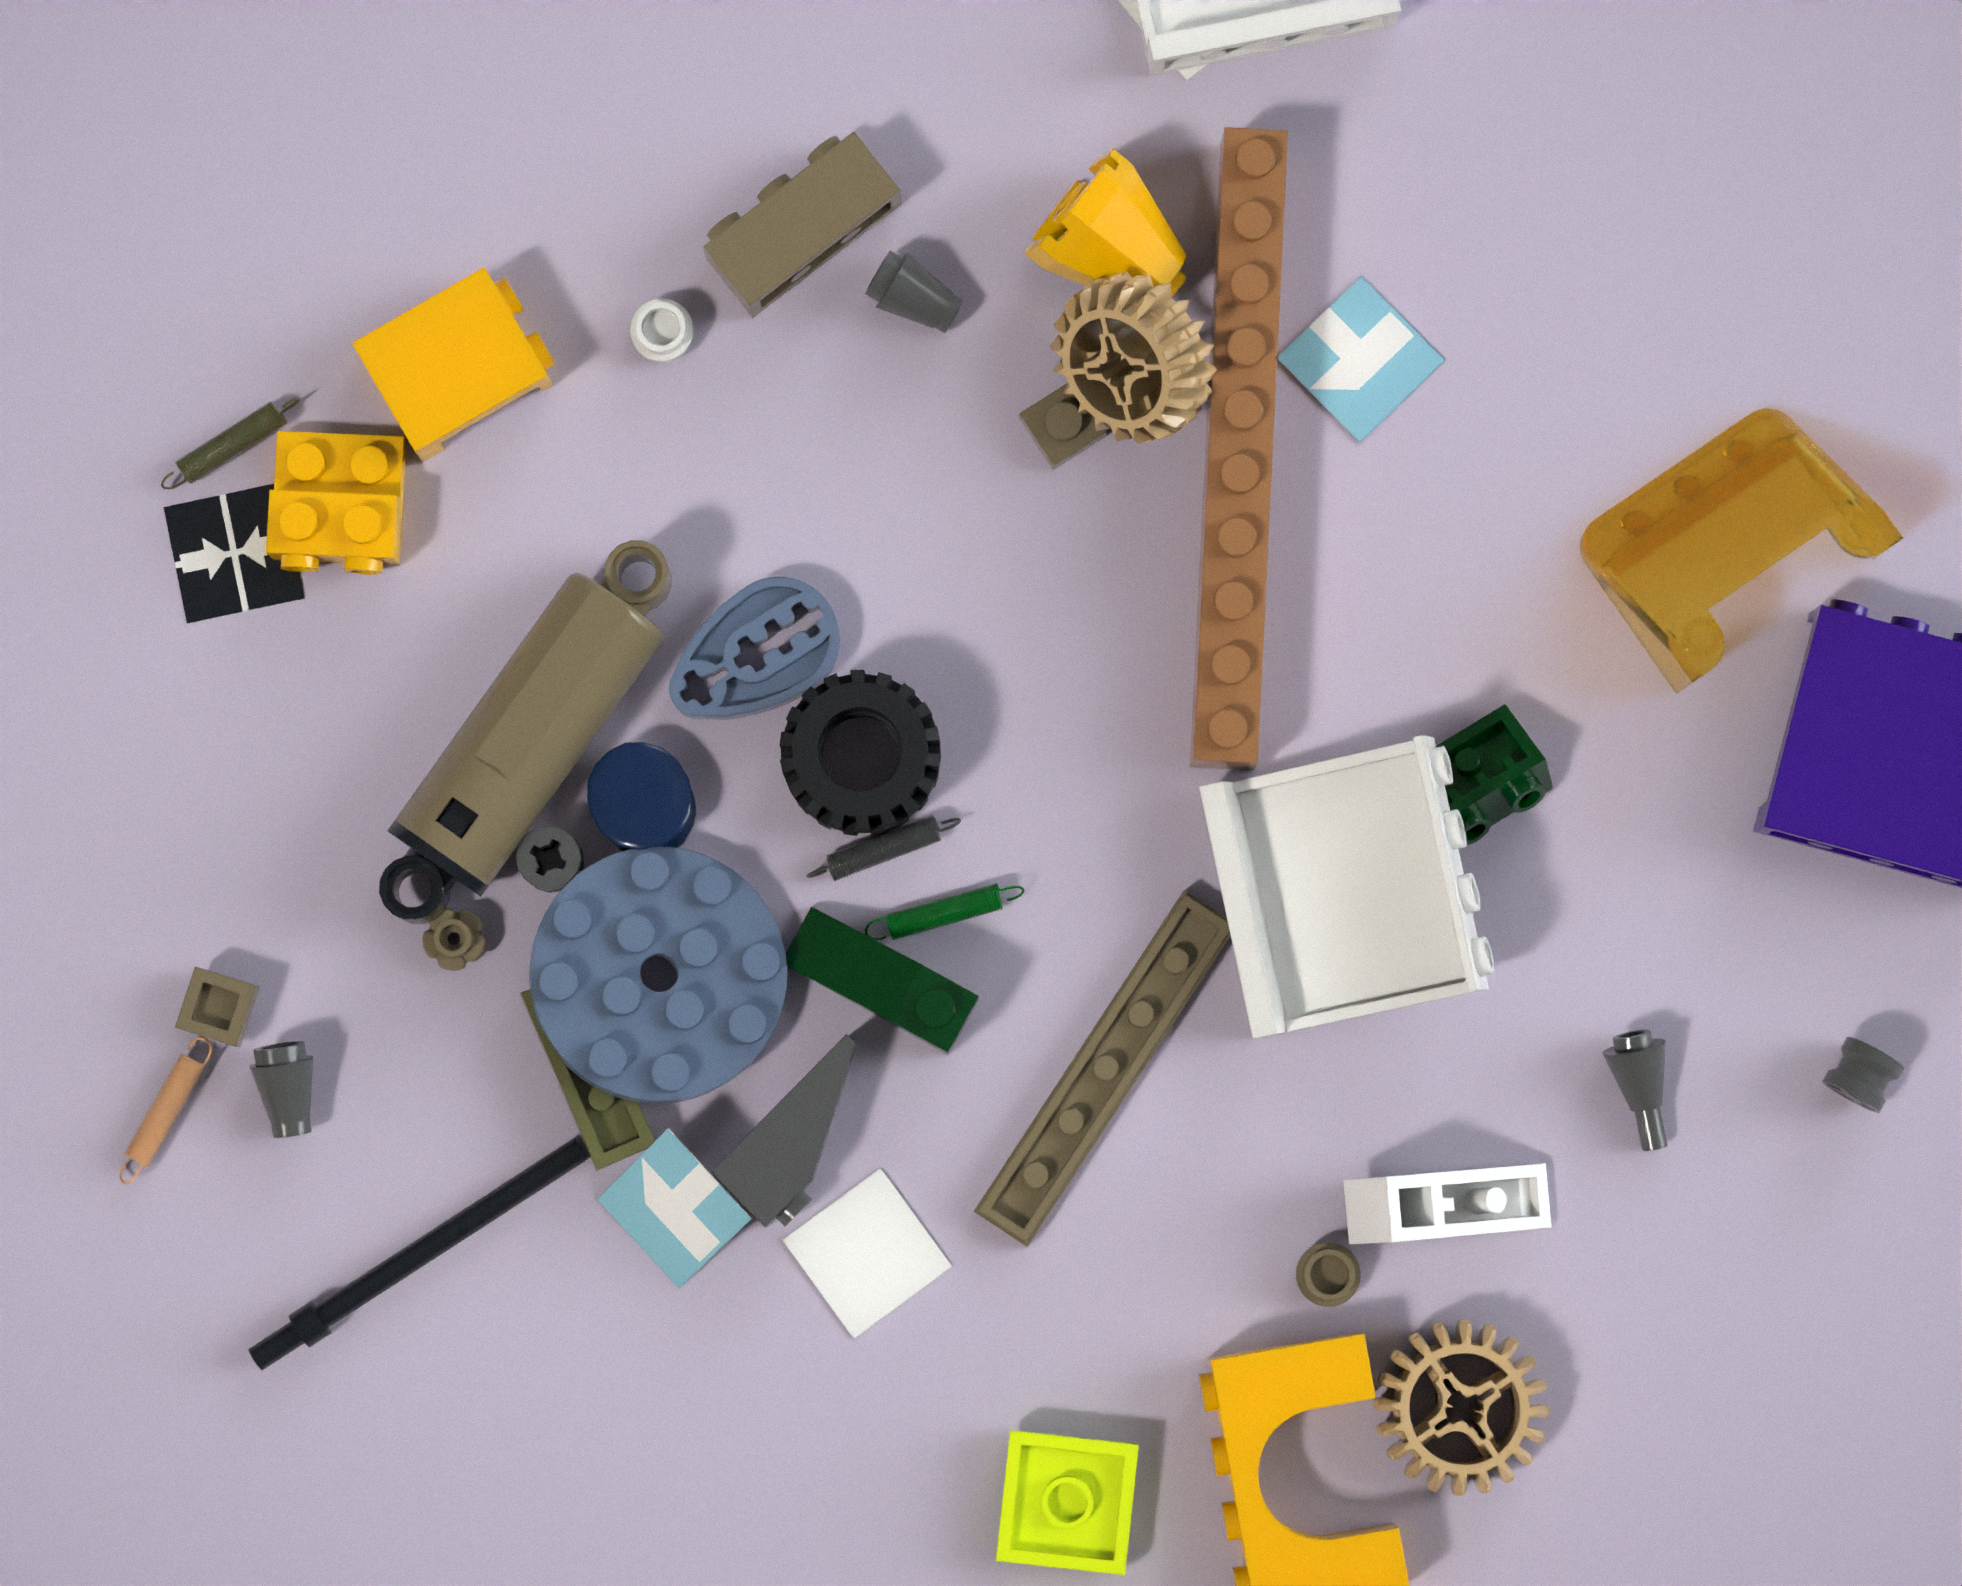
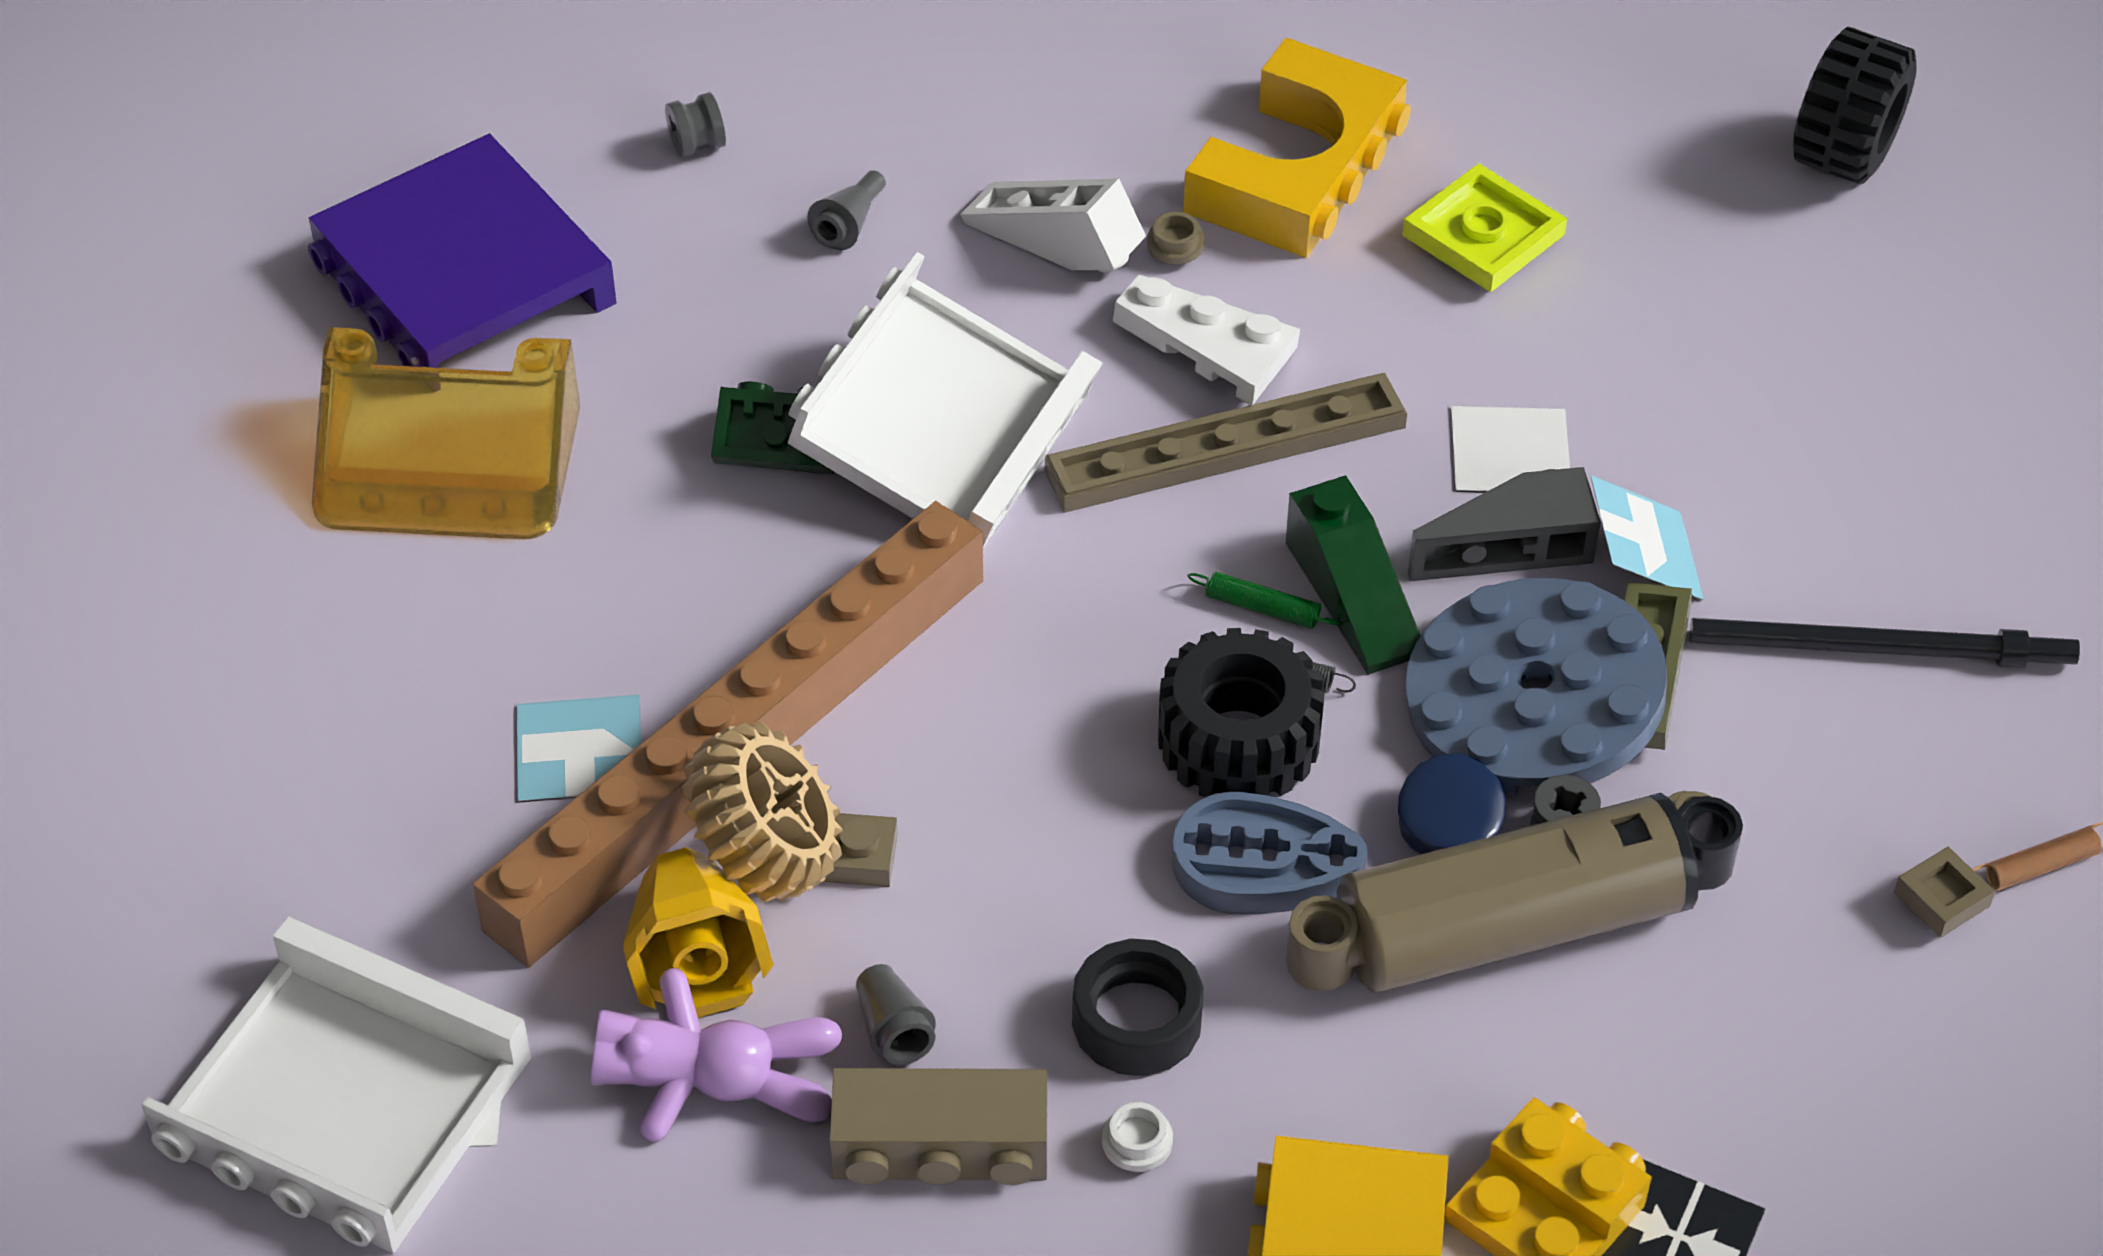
camera: 140 degrees left, 35 degrees down
(285, 1086) = (1920, 806): dark grey cone -> none
(734, 386) = (1130, 1050): none -> black tyre
(997, 155) = (721, 1060): none -> lavender animal
(1207, 1175) = (1218, 336): none -> white wing
(1434, 1423) = (1151, 118): tan gear -> none

